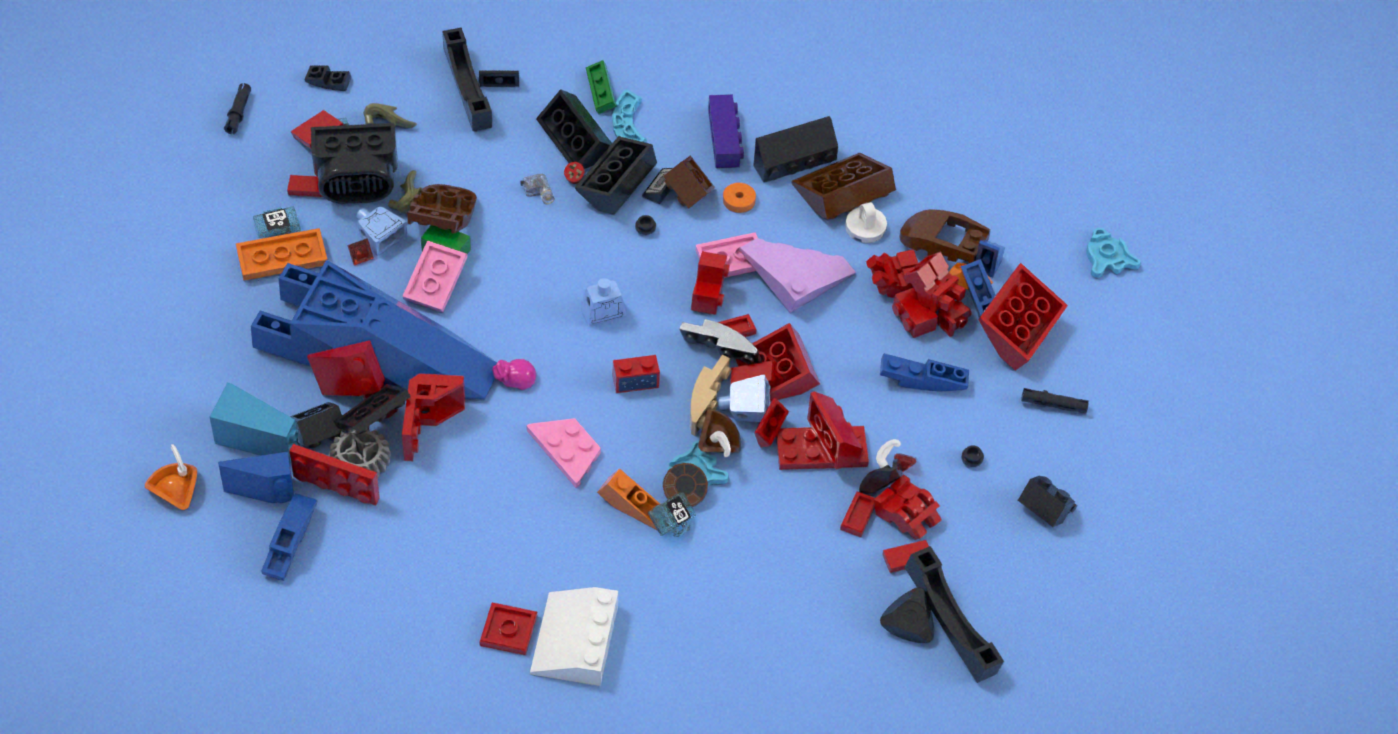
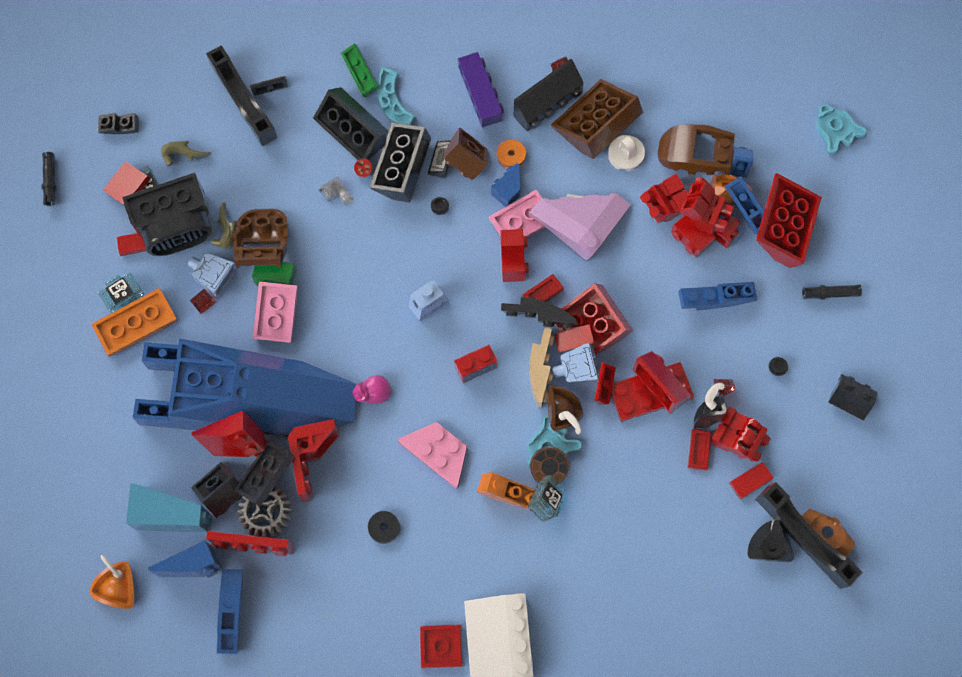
camera: 10 degrees left, 20 degrees up
(483, 494) = (390, 533): none -> black piece
(725, 222) = (508, 187): none -> blue slope
(991, 631) = (840, 540): none -> dark orange piece

